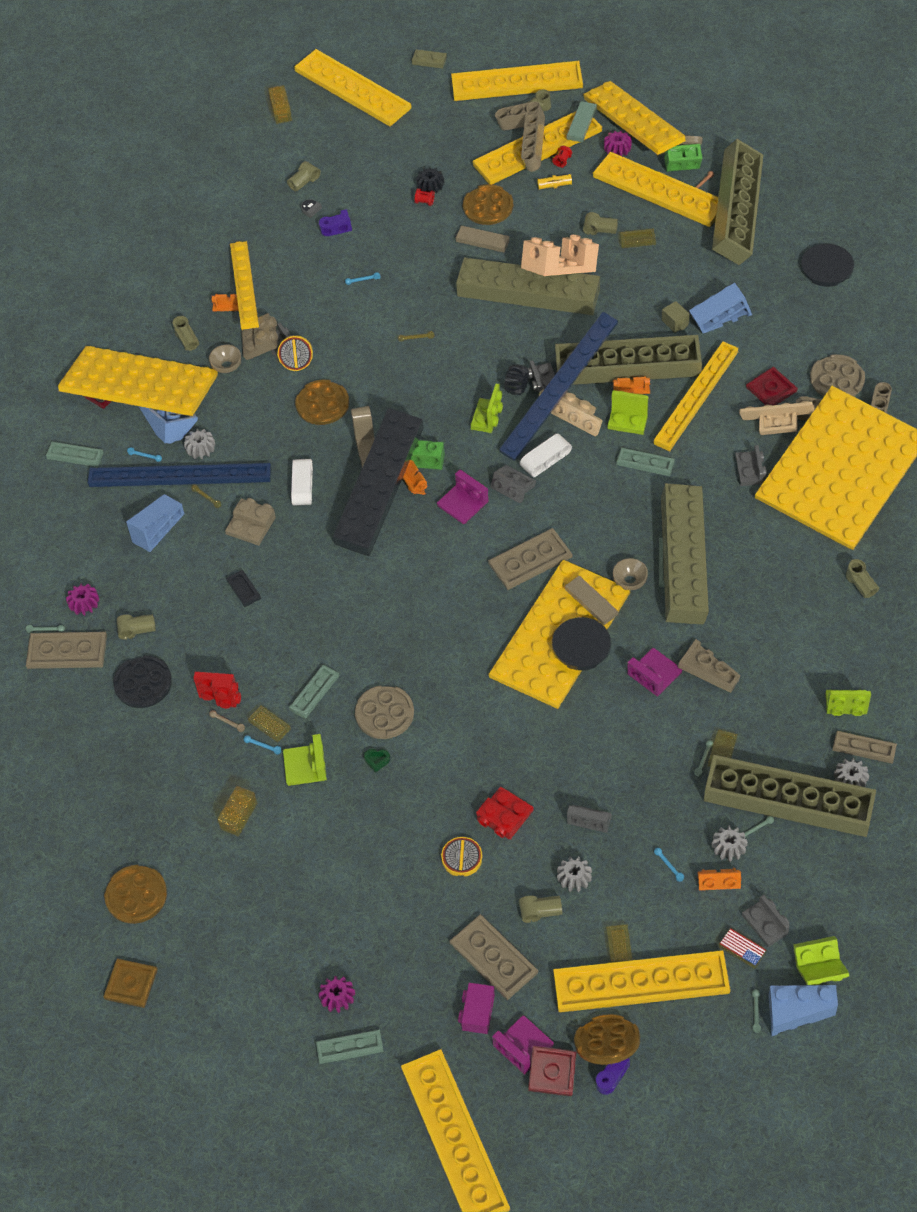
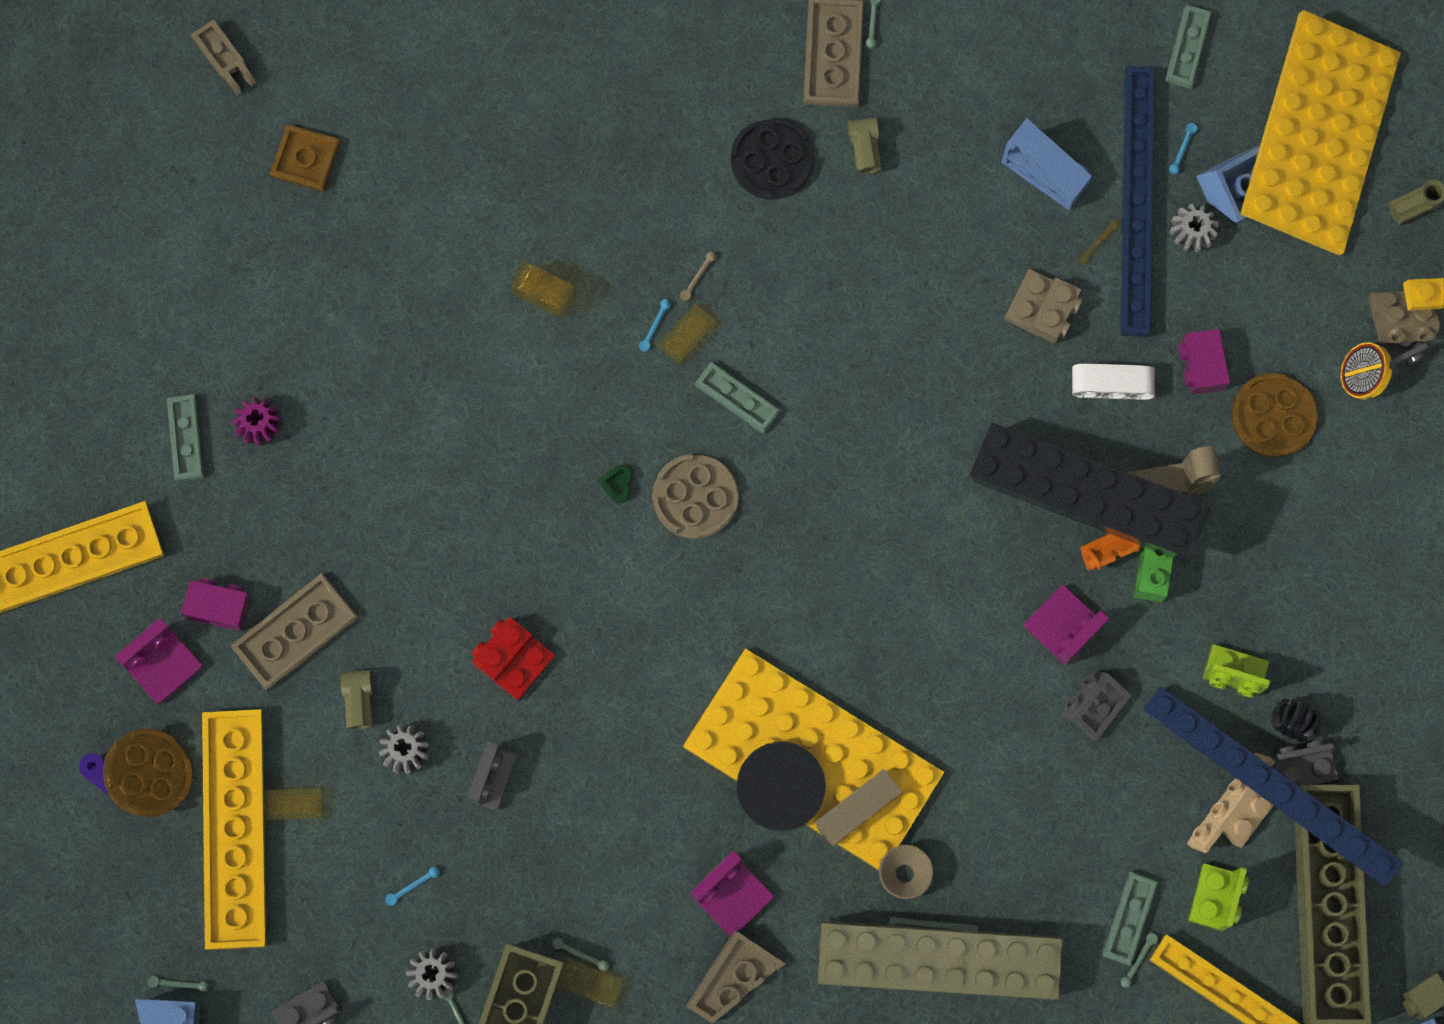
camera: 85 degrees right, 20 degrees up
(46, 1047) = (222, 55): none -> dark tan hinge
(82, 599) = (913, 77): magenta gear -> none
(135, 894) = (435, 160): pearl gold tile -> none
(218, 687) = (734, 264): red plate -> none
(222, 354) = (1367, 252): dark tan piece -> none
(243, 588) = (924, 297): black tile -> none
(288, 435) = (1204, 362): none -> magenta brick
(305, 763) = (615, 383): lime bracket -> none
(430, 335) = (1407, 587): clear yellow hinge -> none
(461, 856) = (450, 595): tile -> none
(530, 558) = (952, 723): dark tan tile -> none
(545, 455) = (1147, 758): white beam -> none
(552, 1071) = (118, 698): dark red tile -> none
(638, 385) = (1283, 909): orange hinge -> none
(656, 451) = (1151, 939): none -> sand green hinge
(719, 880) = (378, 965): orange hinge -> none
(742, 948) = (271, 975): tile -> none

